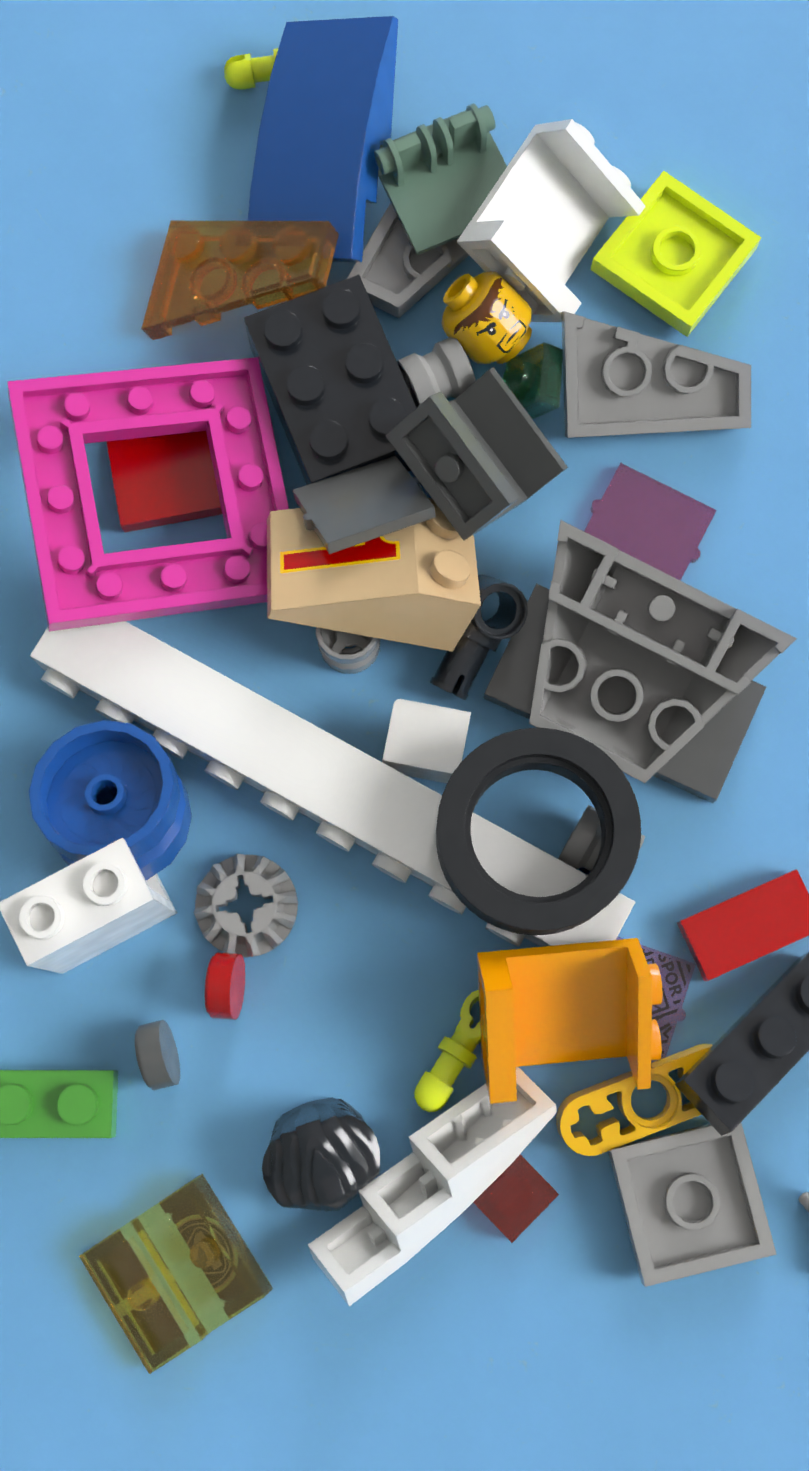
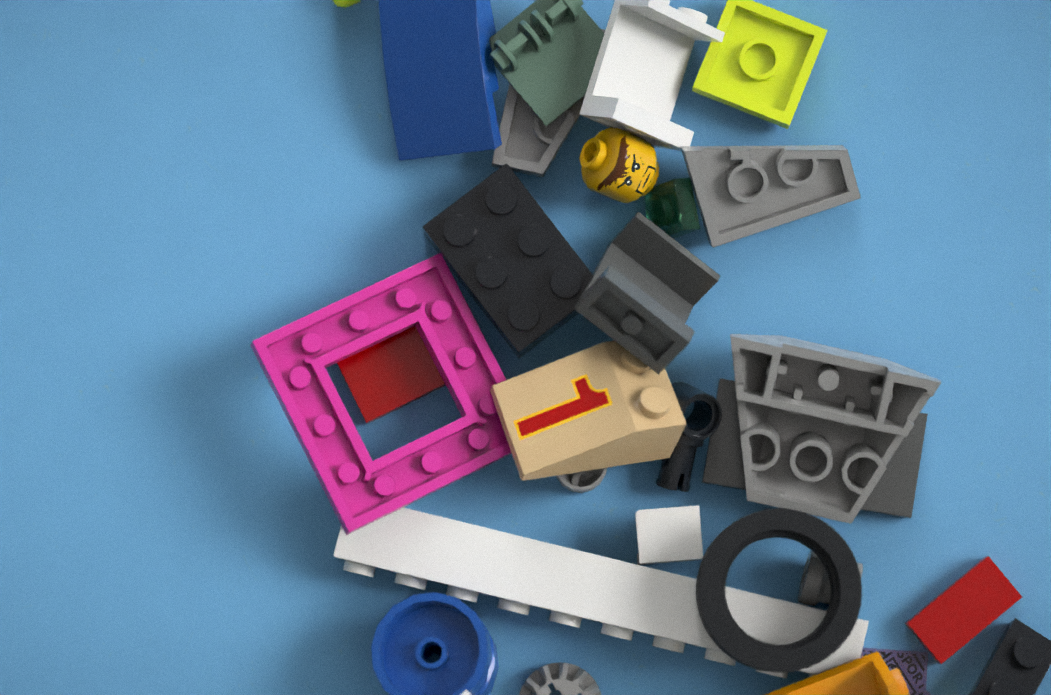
camera: 15 degrees left, 5 degrees up
(233, 265) = (393, 176): clear orange wing -> none
(363, 504) = (567, 363): dark grey piece -> none
(441, 370) = (590, 224): light grey wheel -> none
(650, 521) = (796, 301): clear pink piece -> none

